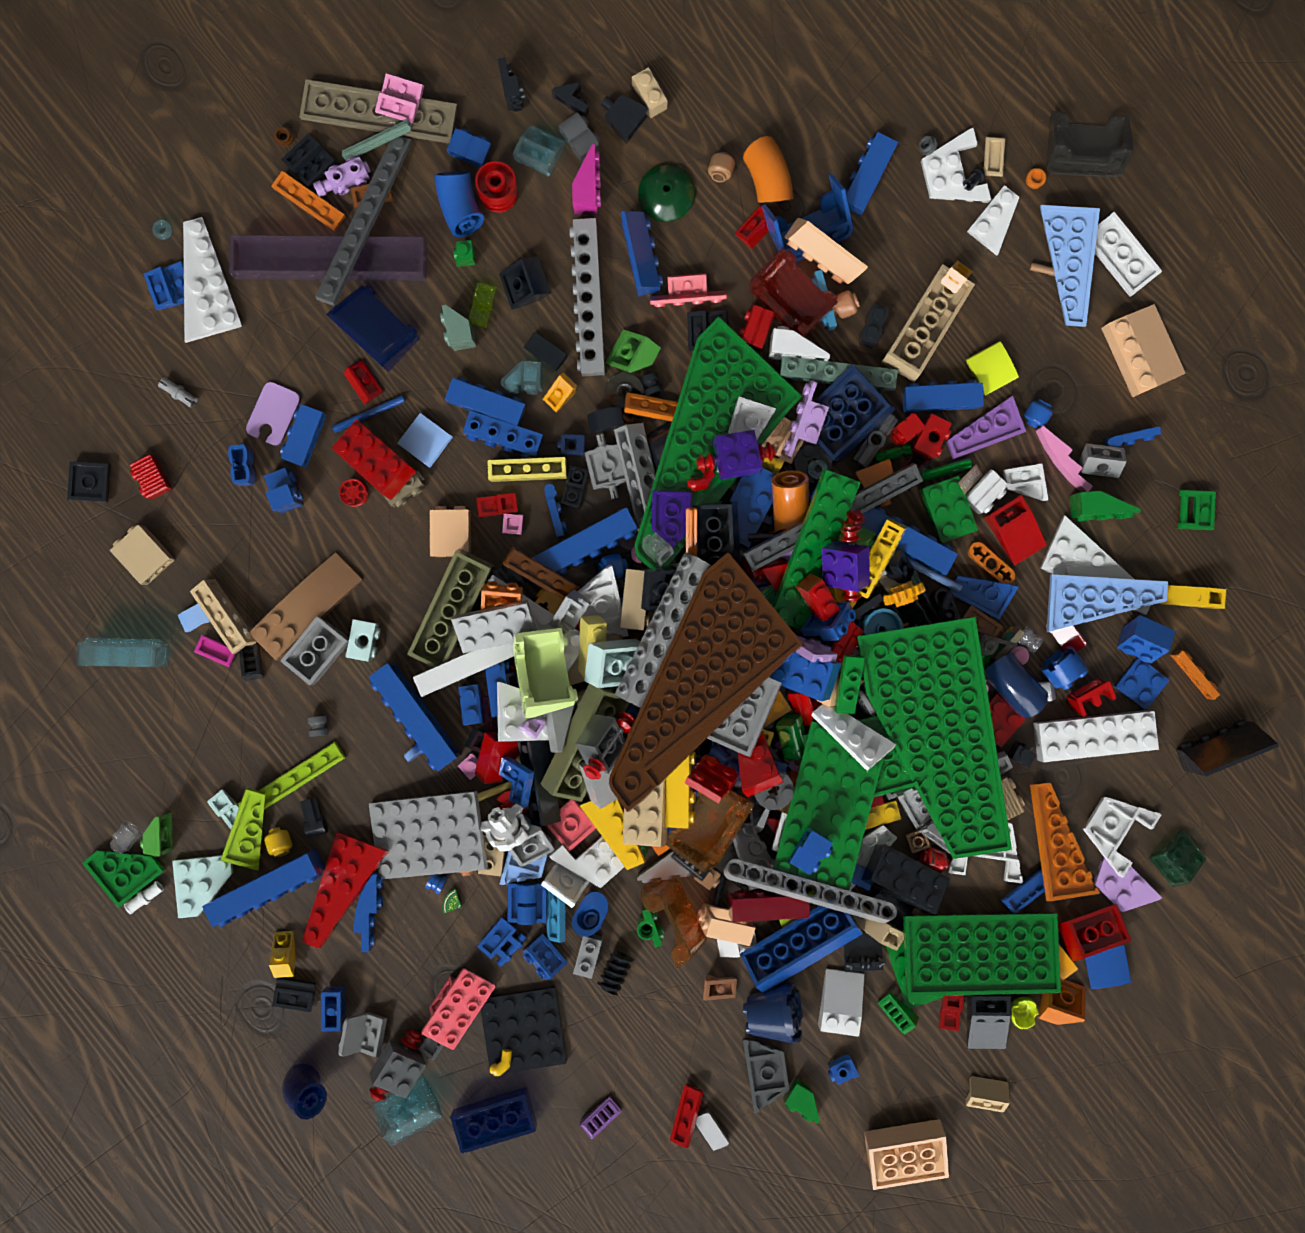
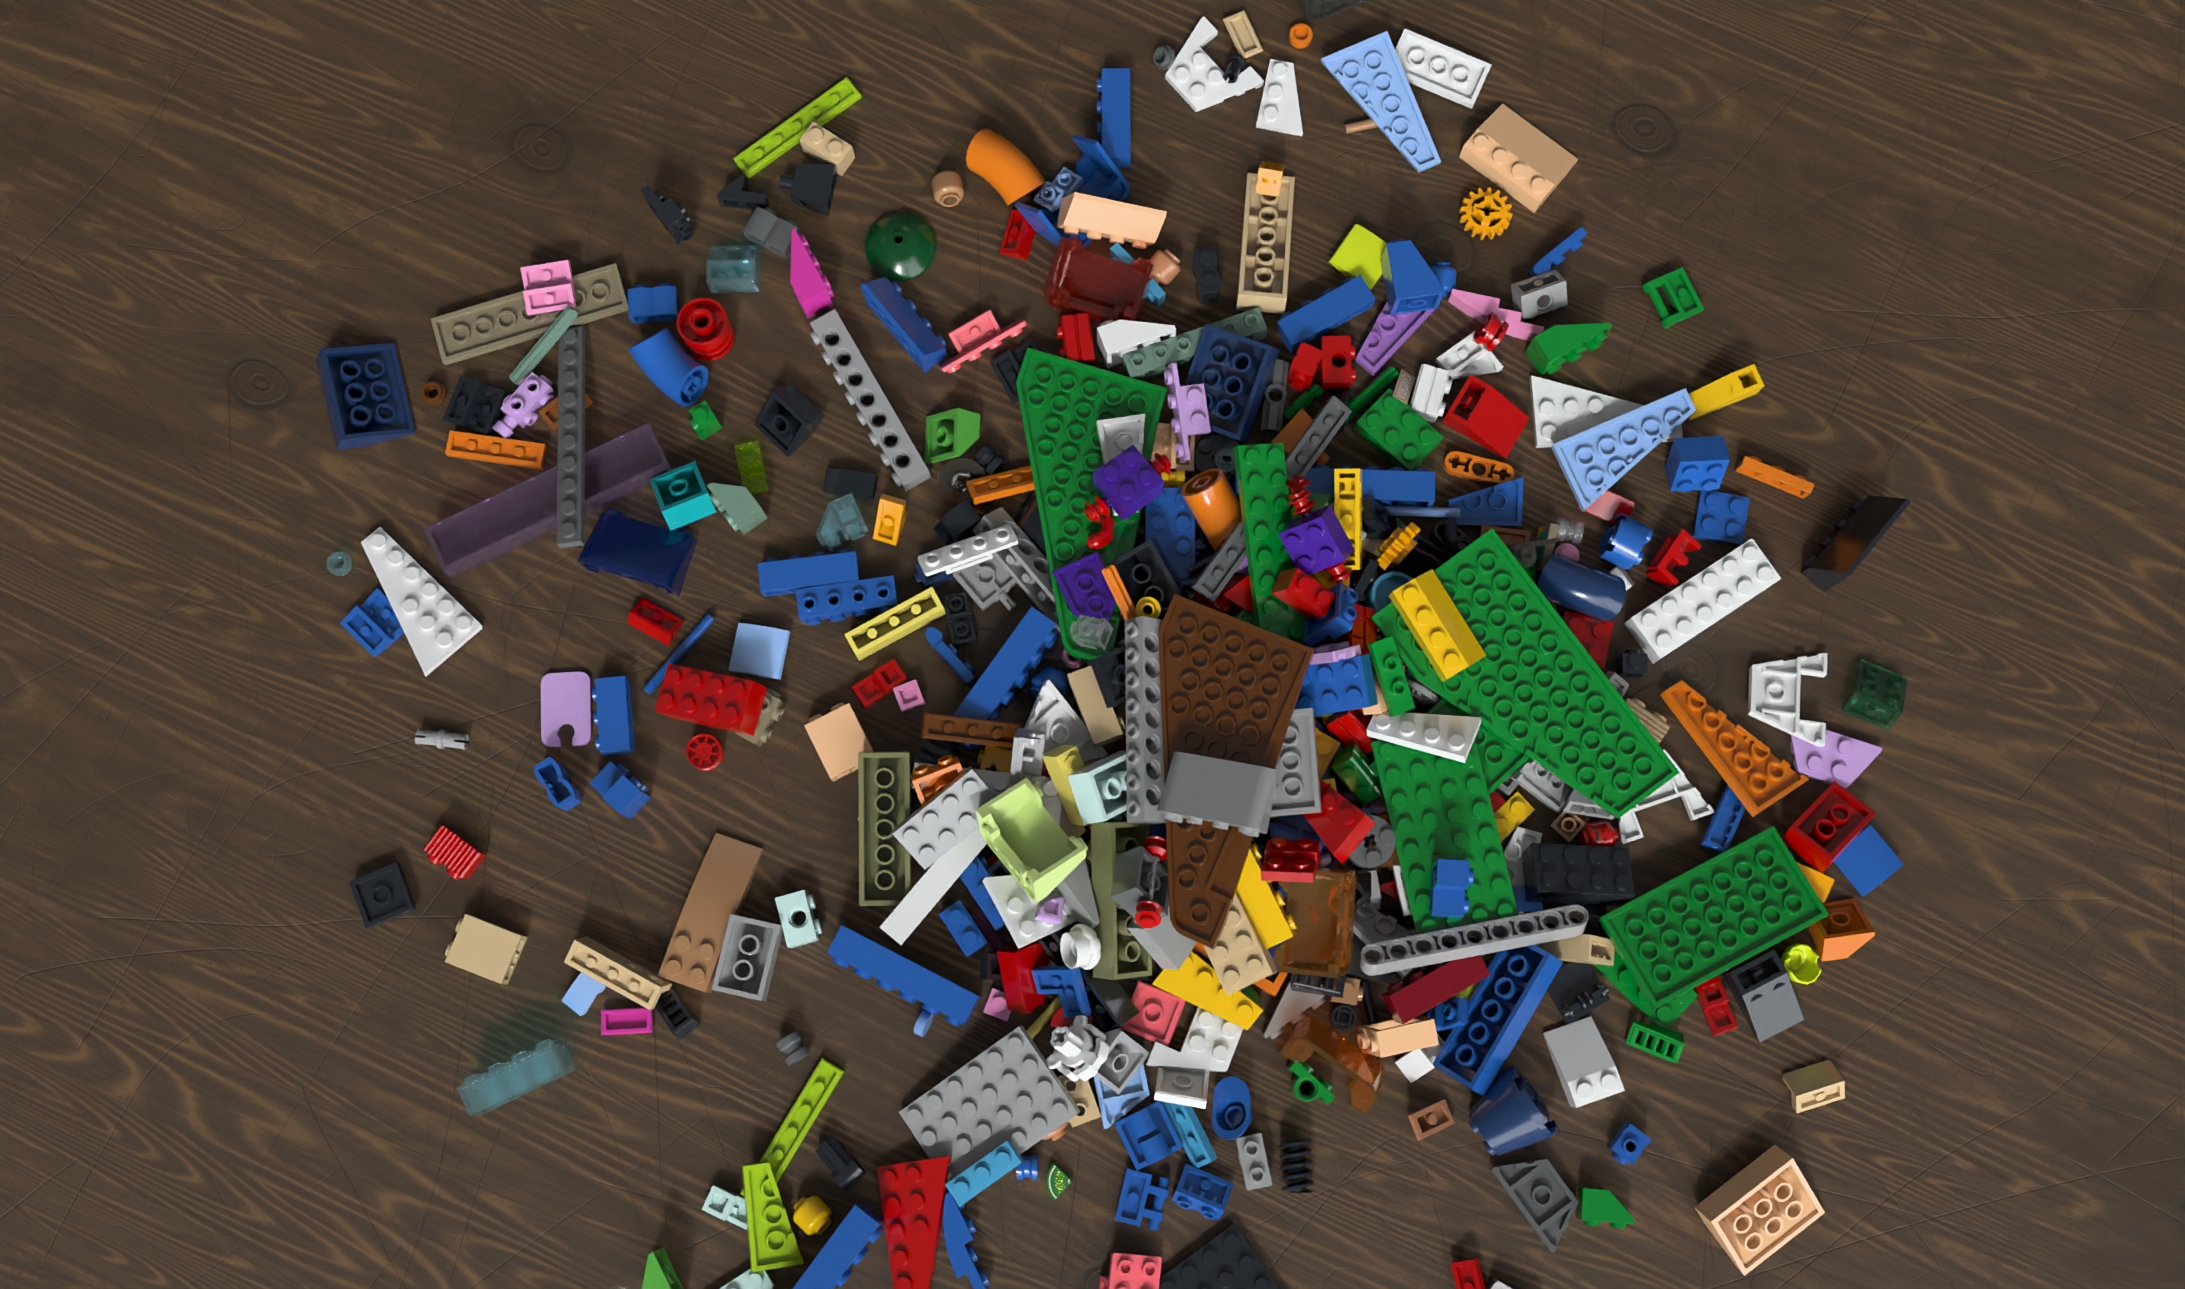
camera: 25 degrees left, 10 degrees down
(234, 113) = (364, 395): none -> dark blue slope
(404, 874) = (984, 1172): none -> dark azure plate
(422, 302) = (682, 495): none -> teal brick
(540, 761) = (1080, 947): none -> white piece
(601, 445) = (968, 551): none -> white bracket
(631, 65) = (790, 131): none -> lime tile
(684, 711) = (1218, 793): none -> light grey windscreen
(696, 888) = (1339, 1015): none -> black wheel
(709, 547) = (1156, 607): none -> yellow plate
(769, 929) = (1448, 1014): none -> blue slope
(800, 209) = (1062, 186): none -> light blue slope
(900, 666) = (1437, 625): none -> yellow slope
(1014, 403) = (1408, 279): none -> blue slope
(1052, 471) = (1490, 332): none -> red wheel
(1104, 384) = (1475, 216): none -> light orange gear

